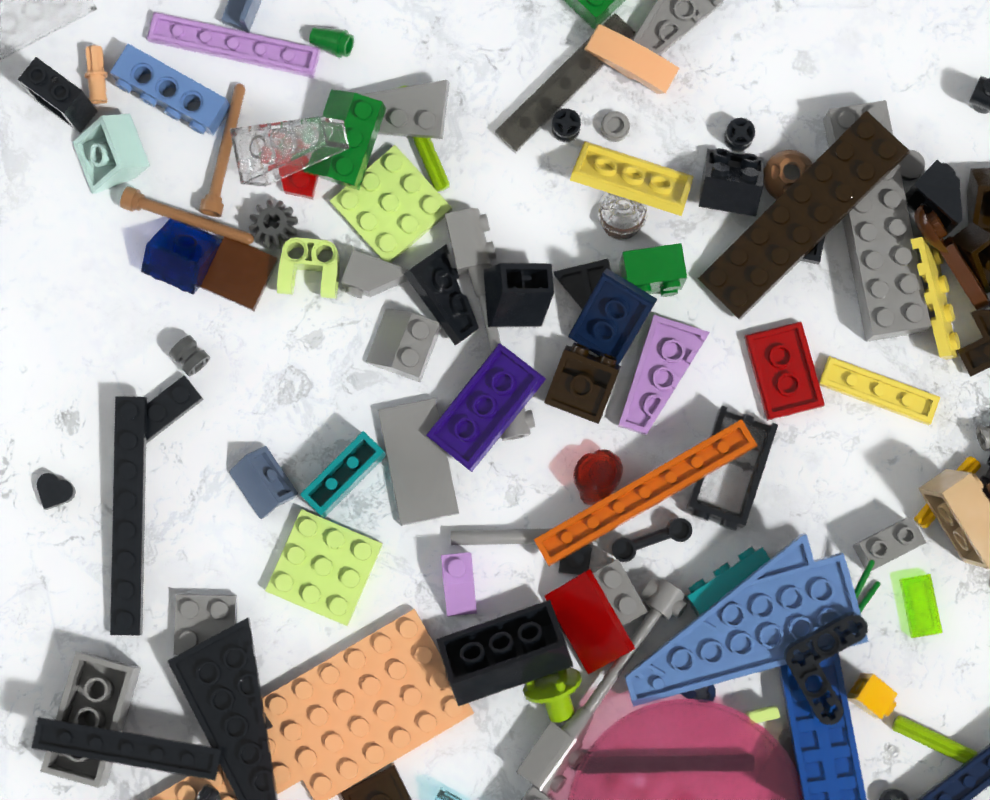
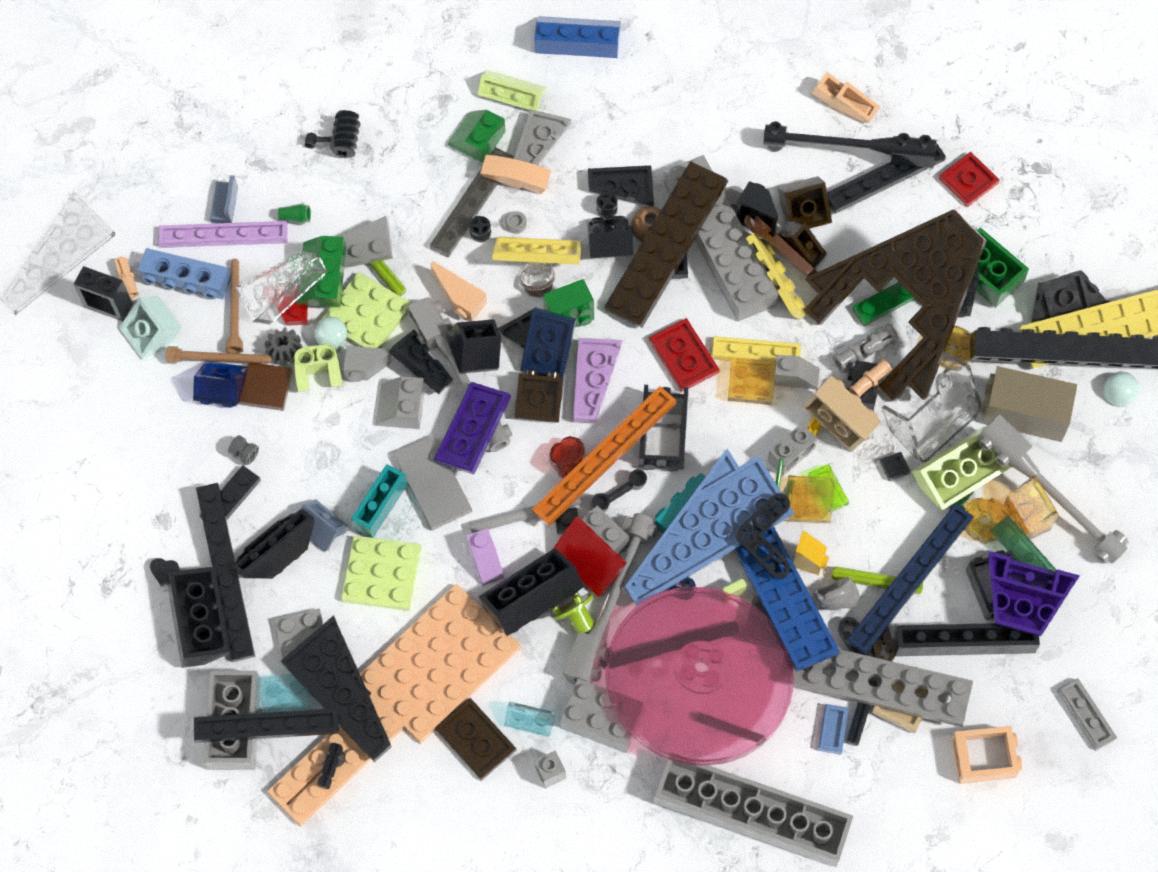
camera: 15 degrees left, 15 degrees down
(80, 568) = (197, 616): none -> black slope
(161, 706) = (283, 694): none -> clear light blue plate
(196, 501) = (276, 547): none -> black wedge
(338, 224) = (332, 332): none -> light aqua hair
(519, 215) = (463, 297): none -> light nougat slope
(769, 107) = (626, 182): none -> black wing
(862, 432) = (751, 381): none -> clear yellow plate
(892, 757) = (838, 595): none -> light grey hair
(894, 617) = (810, 498): none -> clear yellow plate
(922, 437) = (795, 372): none -> light grey slope

